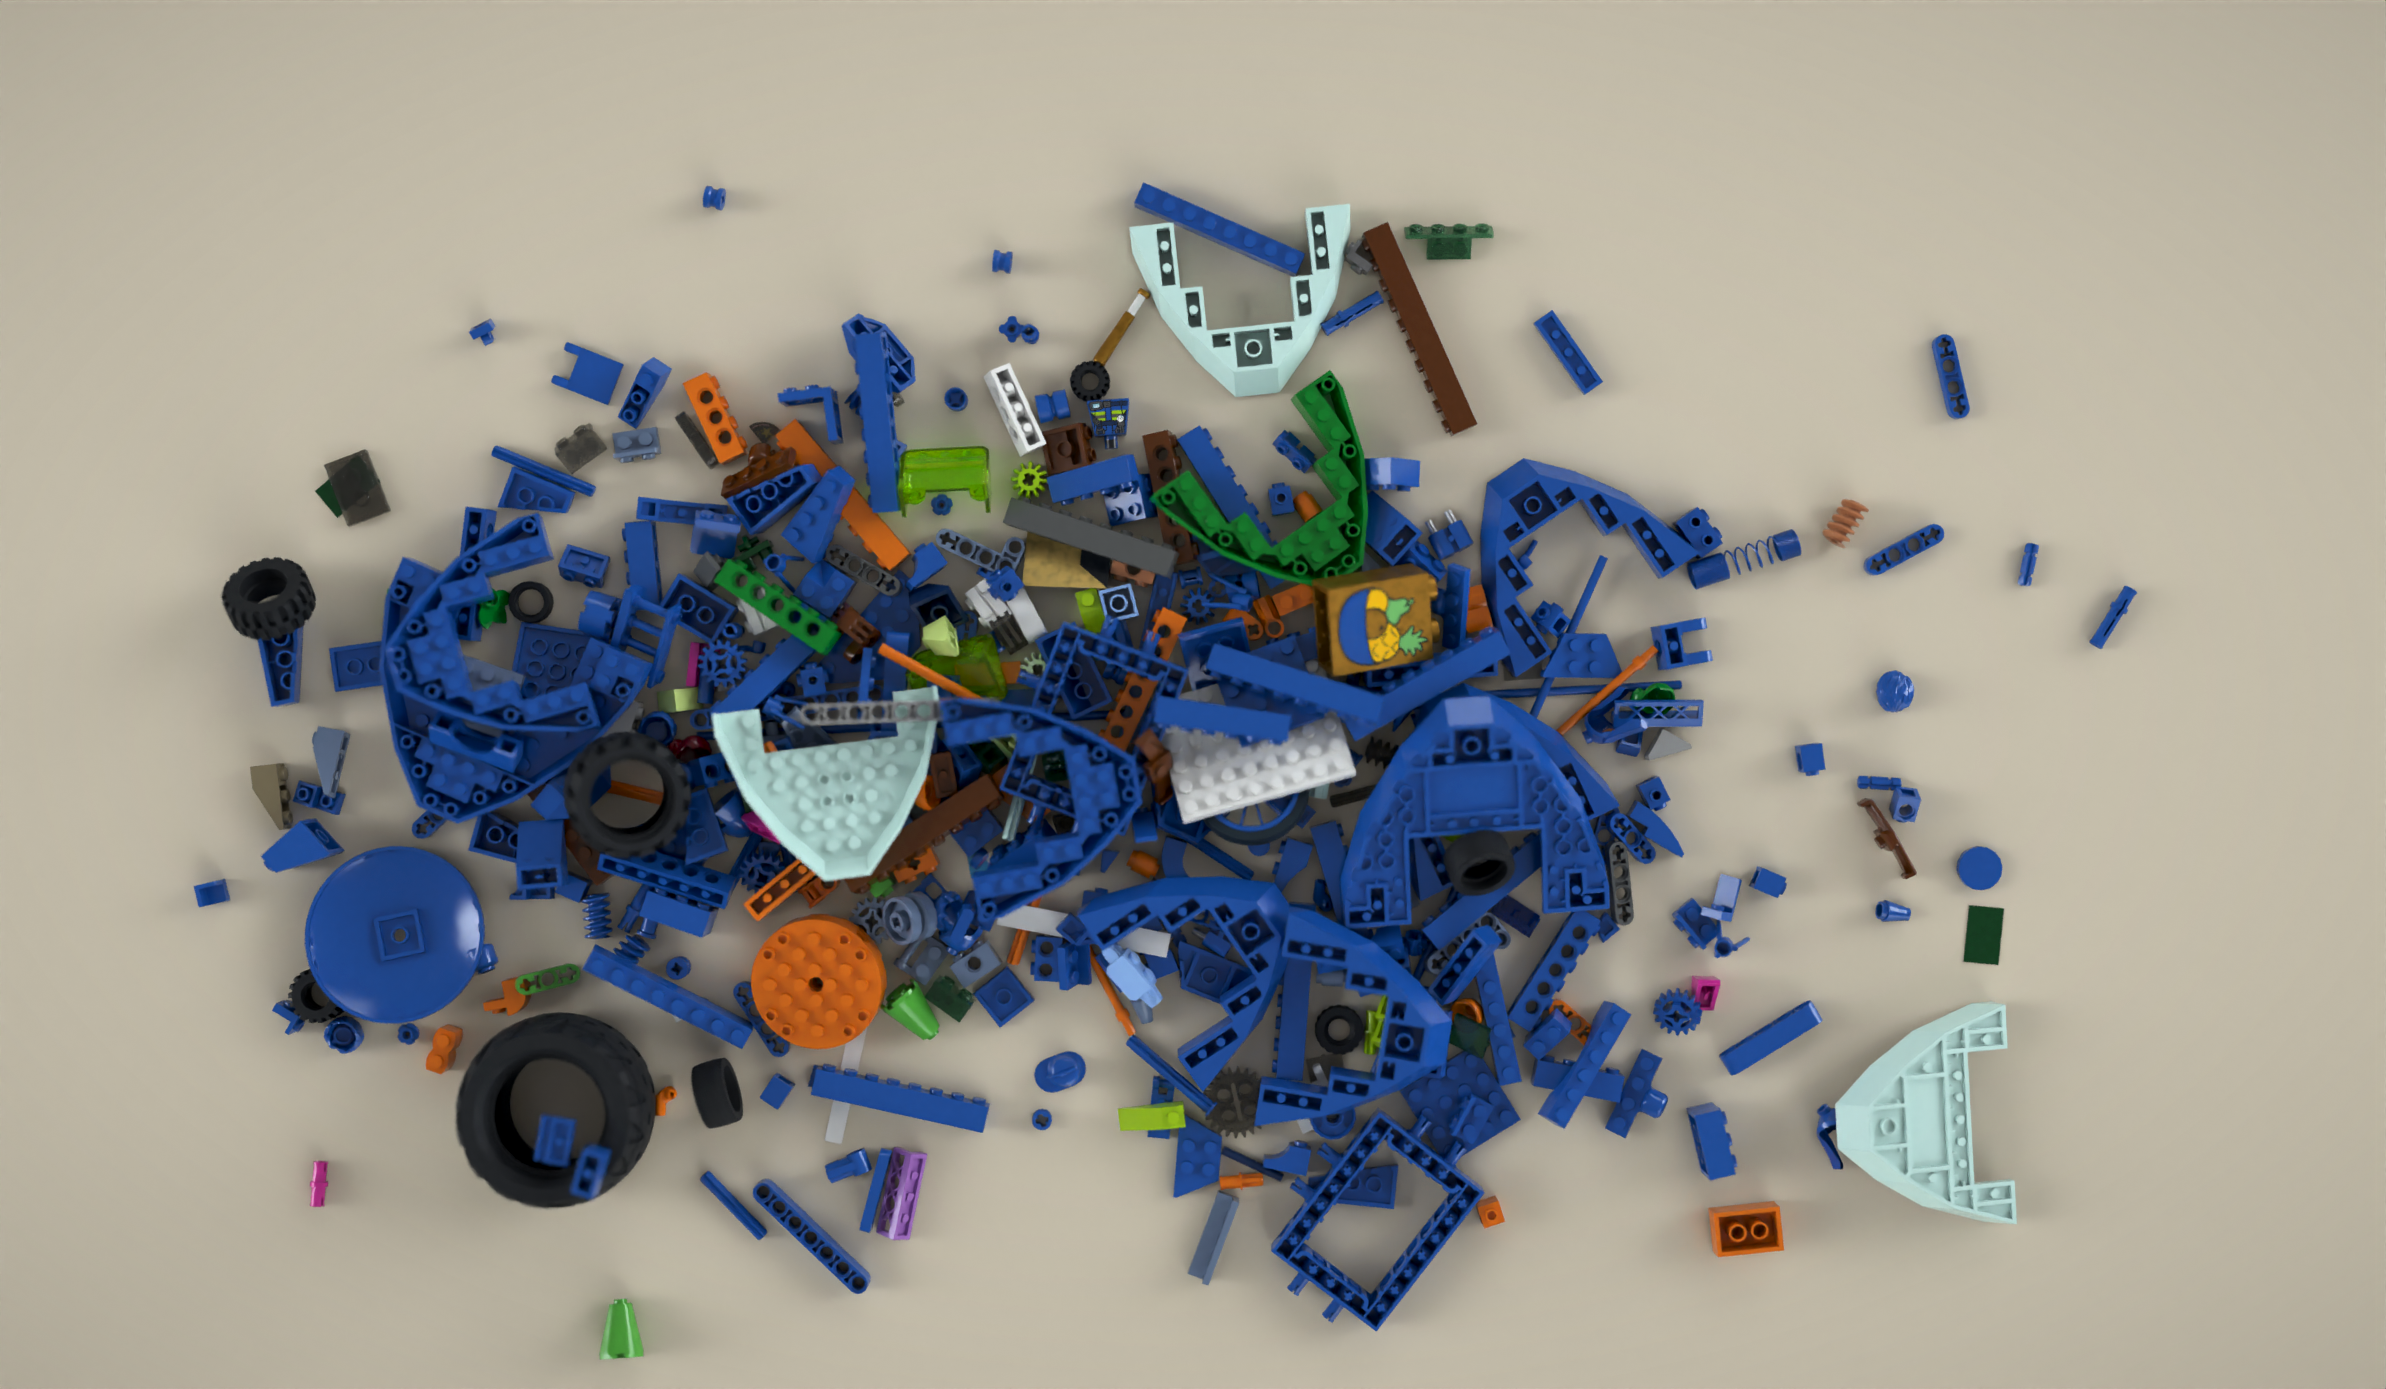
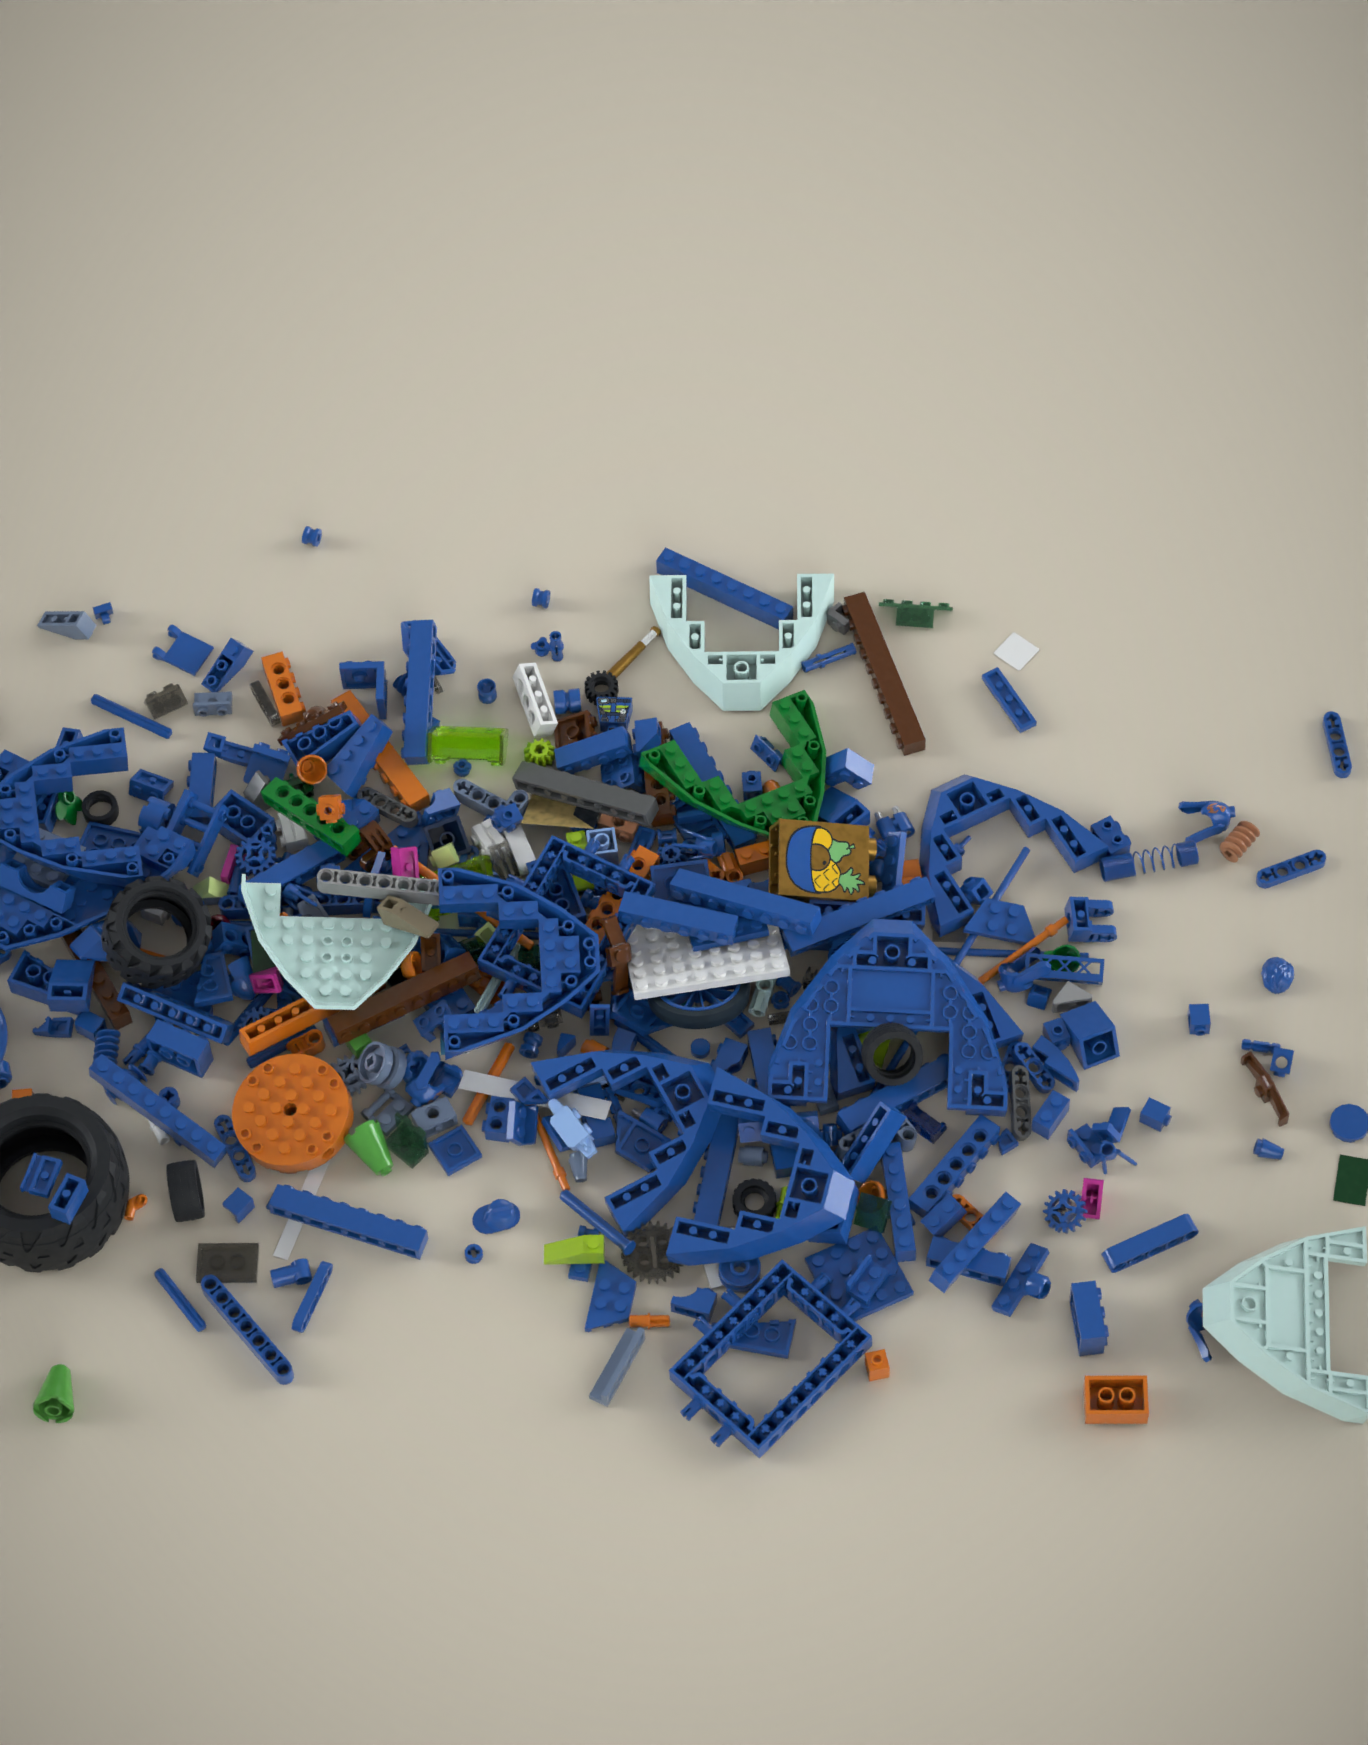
camera: 10 degrees right, 30 degrees down
(443, 352) = (68, 623): none -> sand blue slope
(532, 988) = (59, 1088): bright green beam -> none
(534, 493) = (135, 733): blue wing -> none
(764, 430) = (320, 701): clear smoke tile -> none
(768, 540) = (311, 769): none -> orange piece
(777, 565) = (314, 788): blue plant -> none
(777, 1156) = (228, 1262): none -> clear smoke tile
(800, 611) = (333, 802): none -> orange brick
(898, 672) = (405, 861): none -> dark pink panel
(904, 1196) = (337, 1303): medium lavender fence -> none
(912, 749) = (404, 916): none -> dark tan slope
(927, 864) = (401, 1027): orange brick -> none
(957, 850) = (431, 1019): none -> blue bracket
(1154, 459) = (646, 735): none -> blue slope
(1251, 1163) = (661, 1308): dark blue bar -> none
(1570, 279) = (1016, 651): none -> white sticker
(1653, 894) = (1050, 1114): none -> blue brick
(1691, 788) = (1091, 1034): none -> blue slope
(1821, 493) = (1217, 811): none -> blue piece

